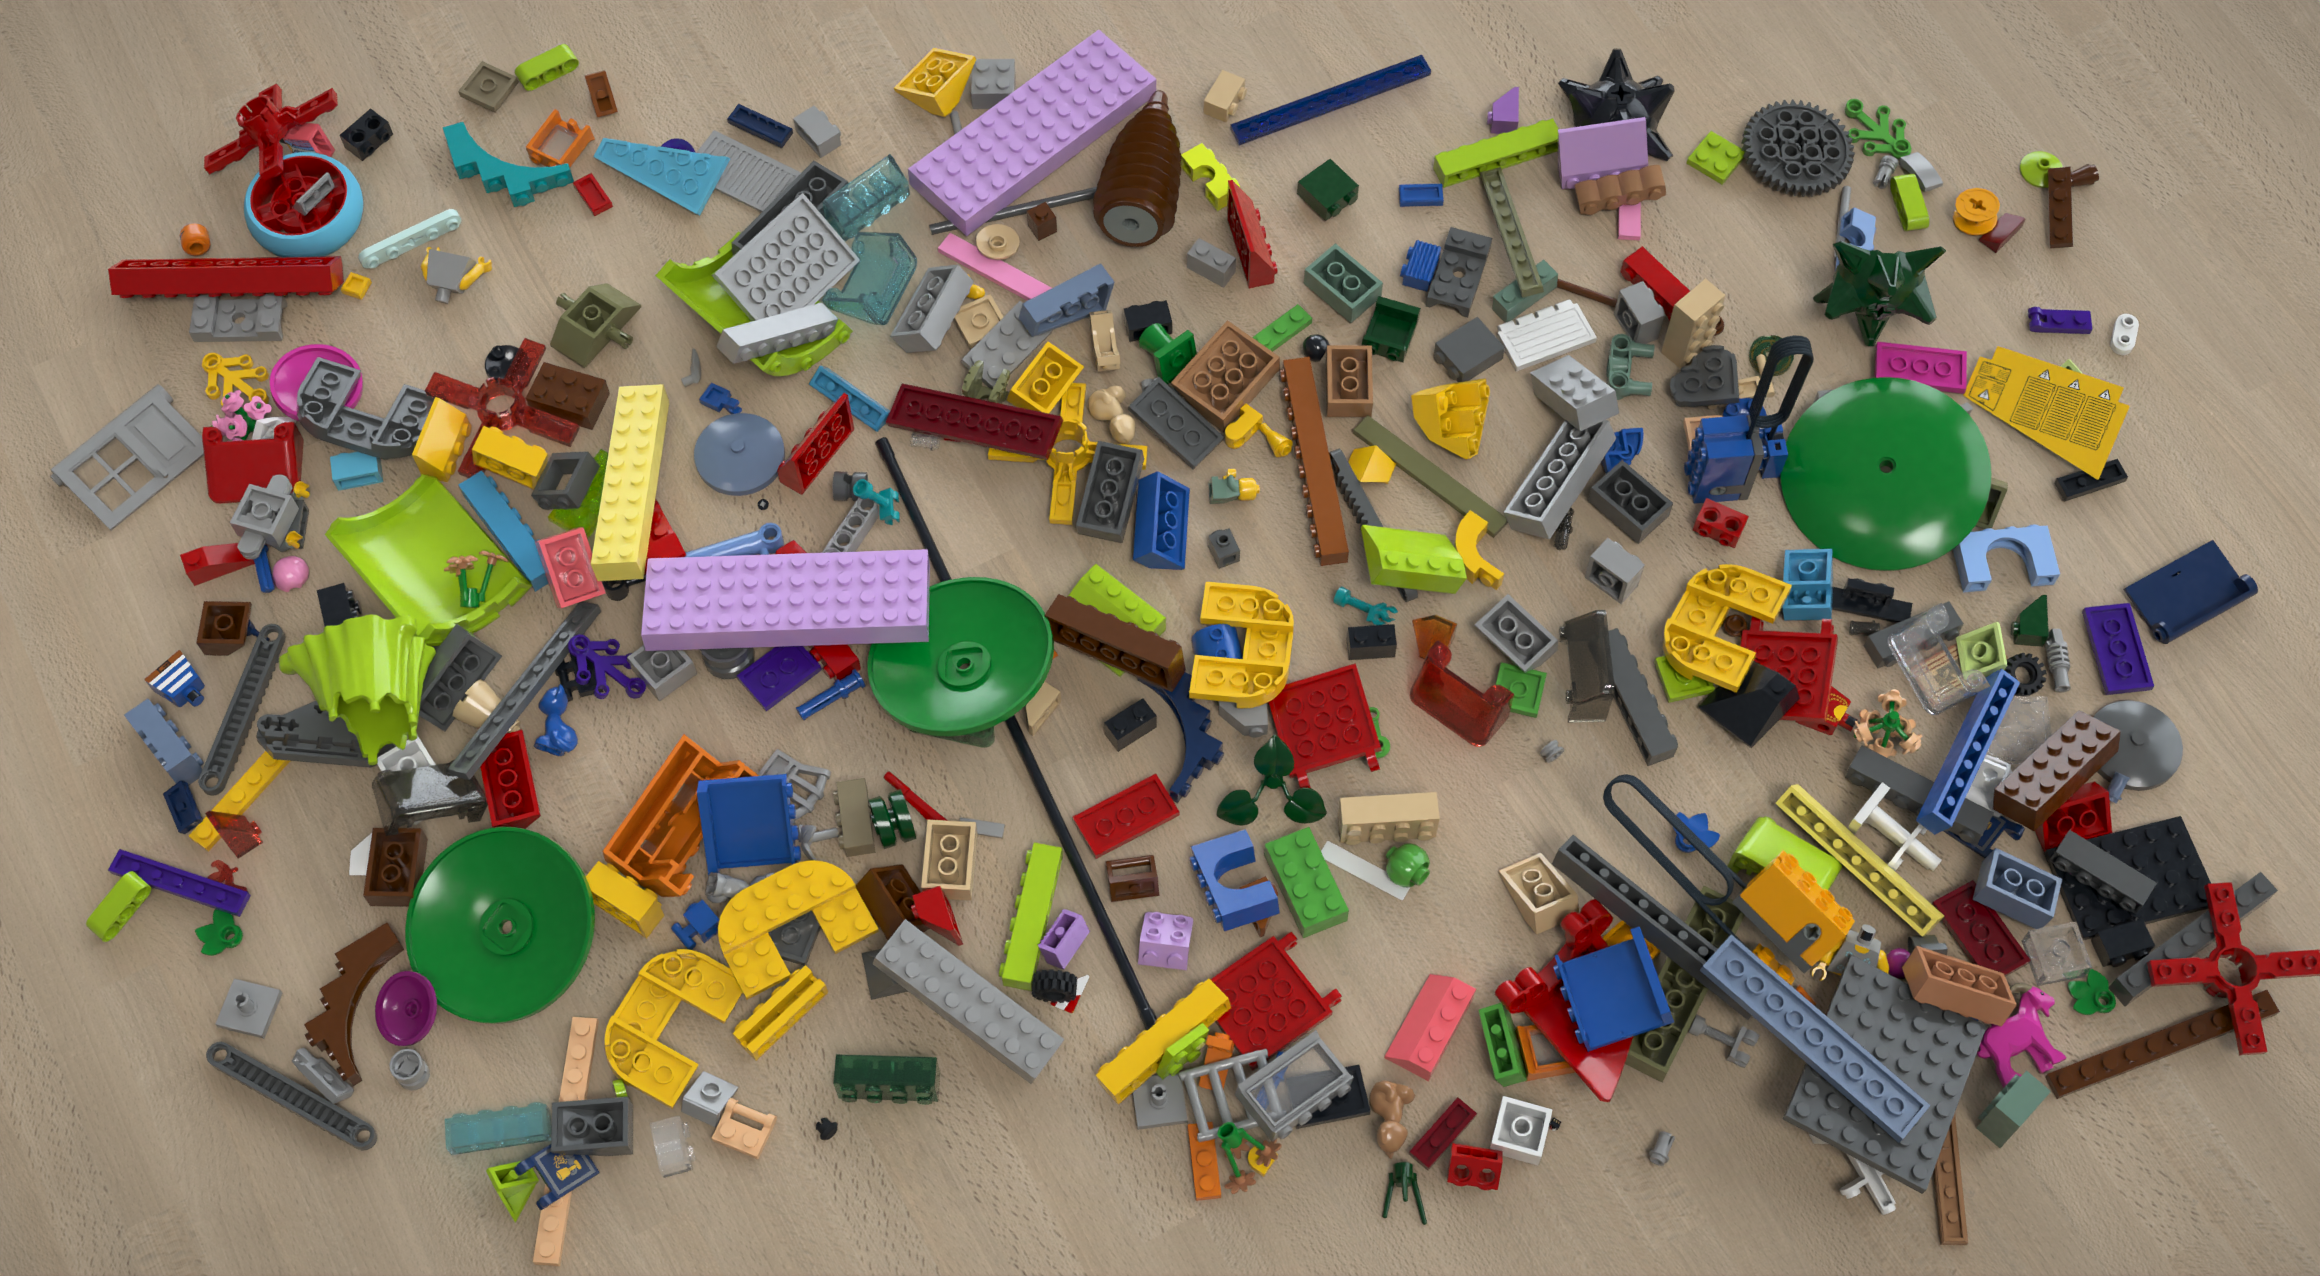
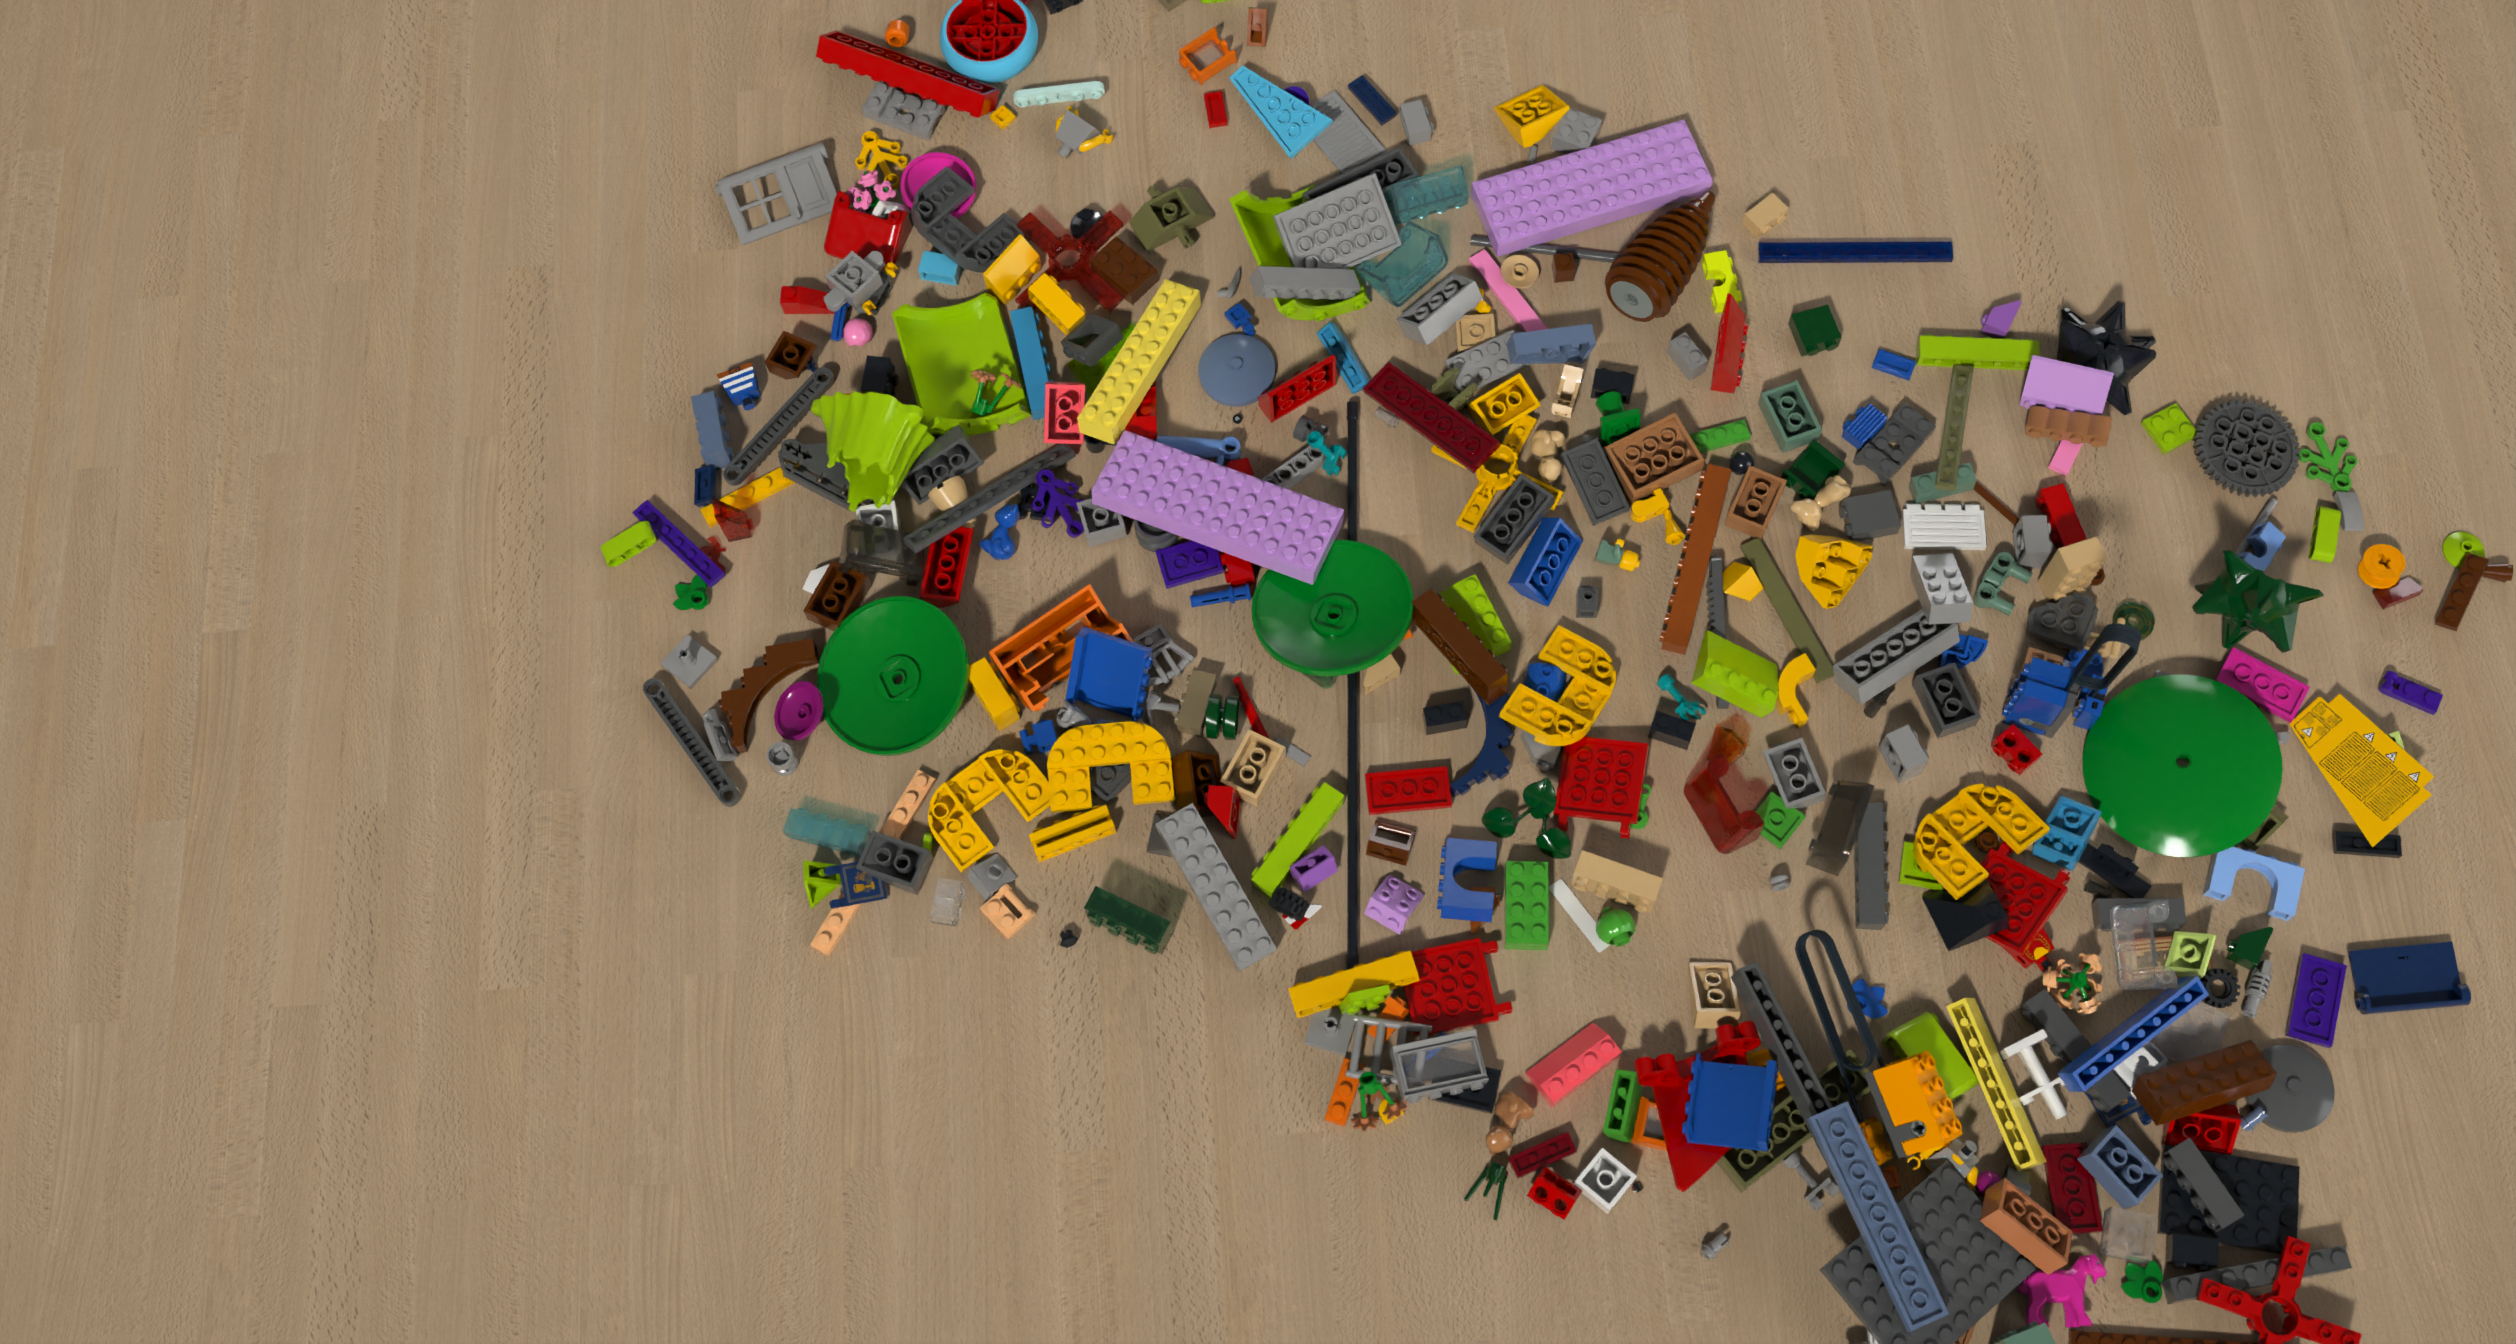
camera: 30 degrees right, 5 degrees up
(314, 194) = (998, 31): light grey slope -> none
(496, 174) = (1146, 65): teal arch -> none
(1406, 368) = (1810, 511): none -> tan animal
(1886, 168) = (2319, 496): light grey pin -> none
(2124, 332) = (2465, 726): white plate -> none

